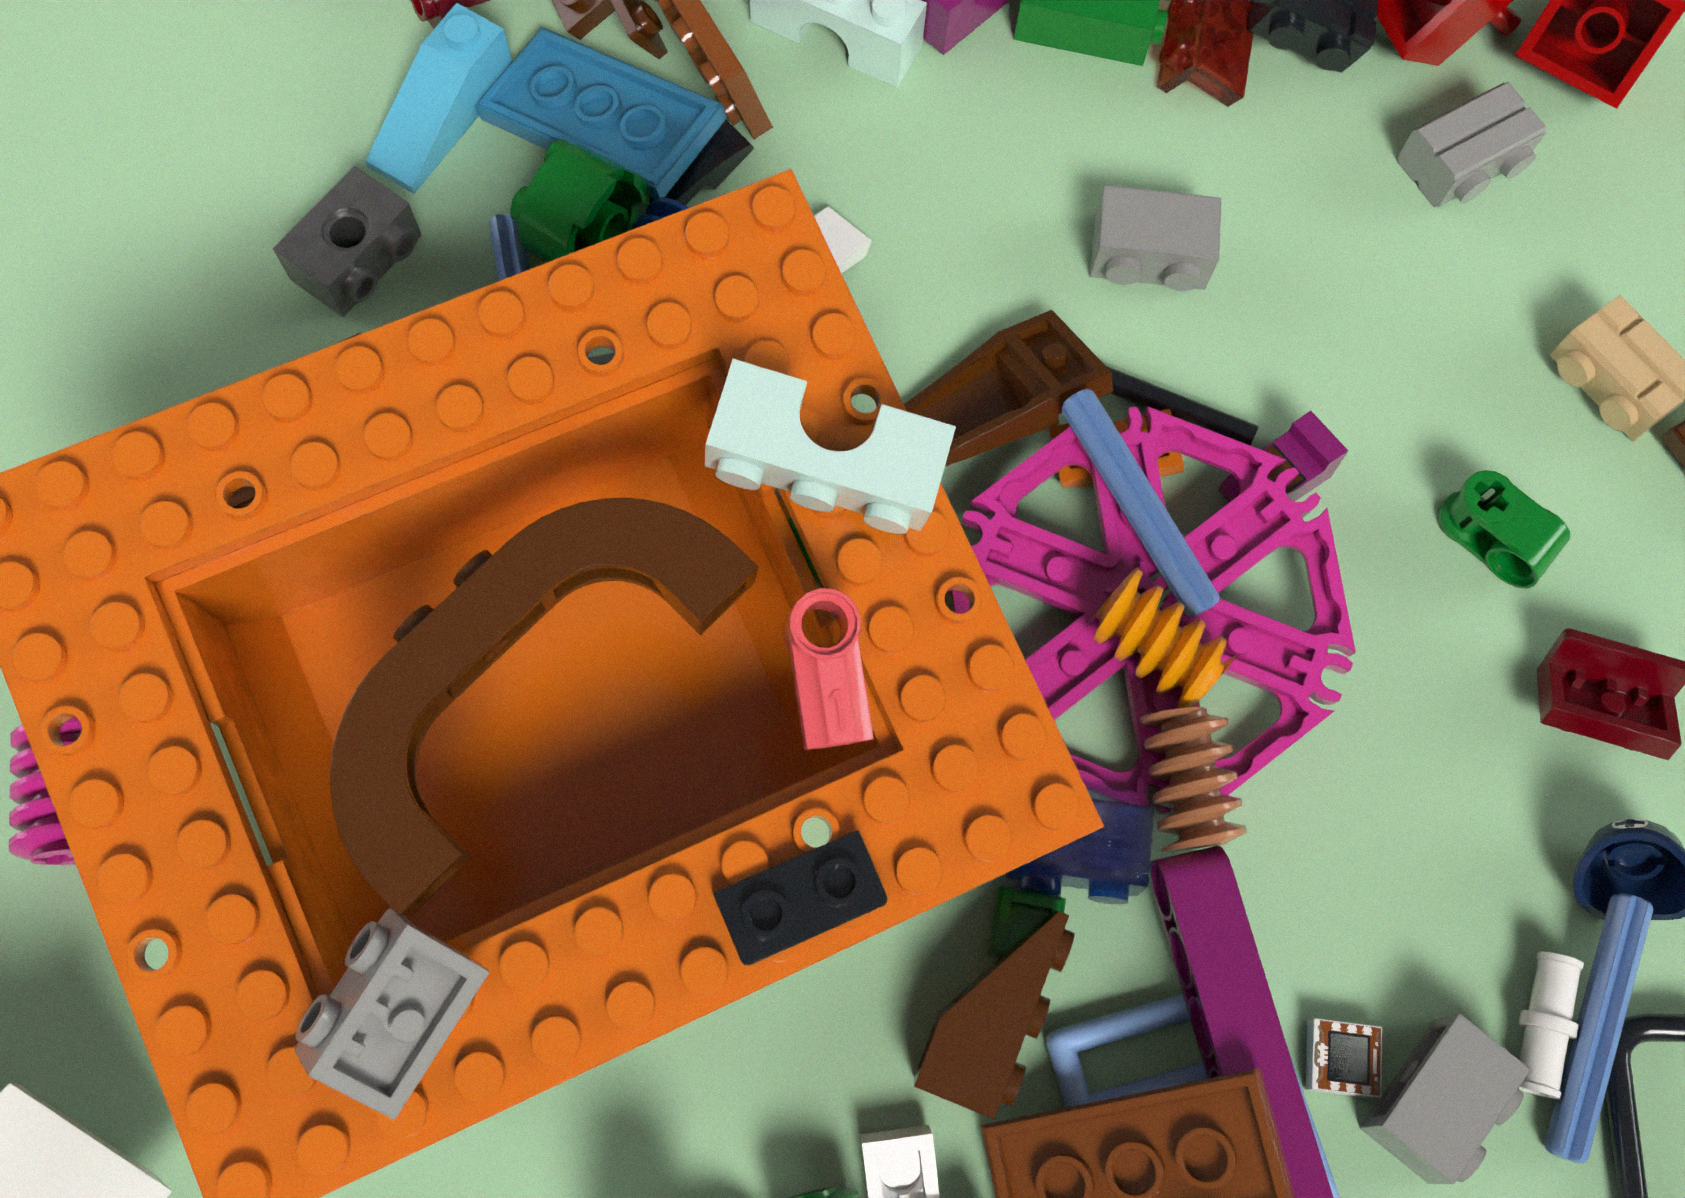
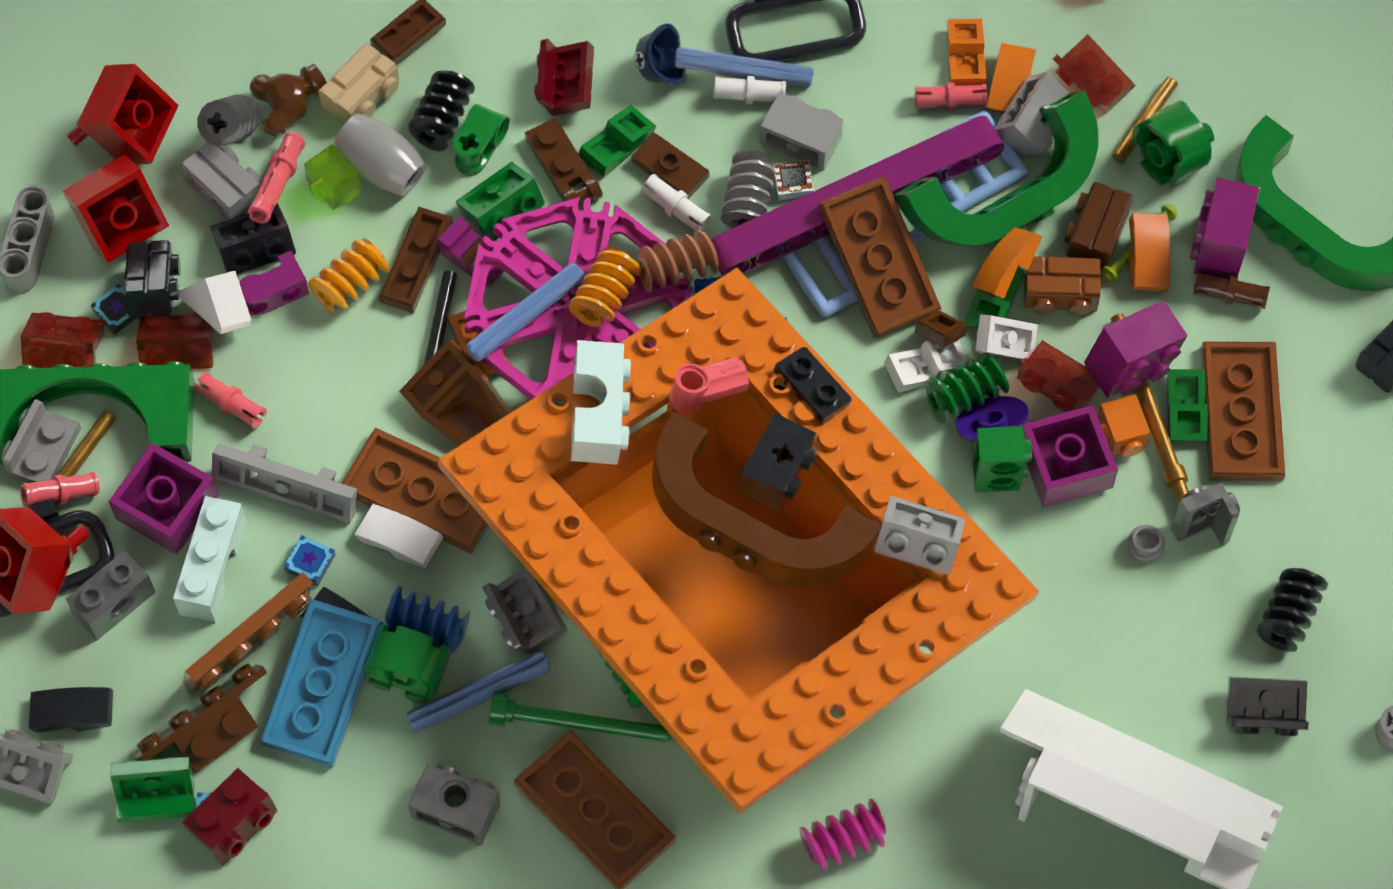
camera: 100 degrees left, 5 degrees down
(439, 97) = (334, 785): medium azure slope -> none
(599, 713) = (781, 443): none -> black brick
(806, 145) = (310, 558): none -> blue tile
(914, 290) = (410, 483): none -> dark orange tile
(968, 94) = (284, 483): none -> light grey hinge
(983, 1028) = (838, 340): reddish brown slope -> none
(1092, 90) = (230, 400): none -> coral pin
(1155, 238) = (334, 344): light grey brick -> none
(1248, 91) = (218, 302): none -> white slope
(1270, 284) = (347, 274): none -> light orange piece
(1273, 182) = (275, 286): none -> magenta leg
(1286, 389) = (415, 260): none -> reddish brown tile
(1324, 826) = (676, 203): none -> white pin
(1330, 957) = (747, 188): none -> light grey piece
(1362, 169) = (251, 244): none -> black bracket
(1378, 539) = (499, 197): none -> green bracket
(1405, 840) = (670, 165): none -> reddish brown plate
(1437, 657) = (562, 162): none -> reddish brown plate
(1456, 295) = (332, 178): none -> clear neon green brick
(1474, 768) = (620, 139): none -> green slope
(1476, 220) = (281, 167): none -> coral pin
(1488, 364) = (380, 154): none -> light grey piece
(1569, 477) = (440, 109): none -> black piece
(1579, 158) = (228, 119): none -> dark grey piece
(1616, 261) = (286, 96): none -> reddish brown animal

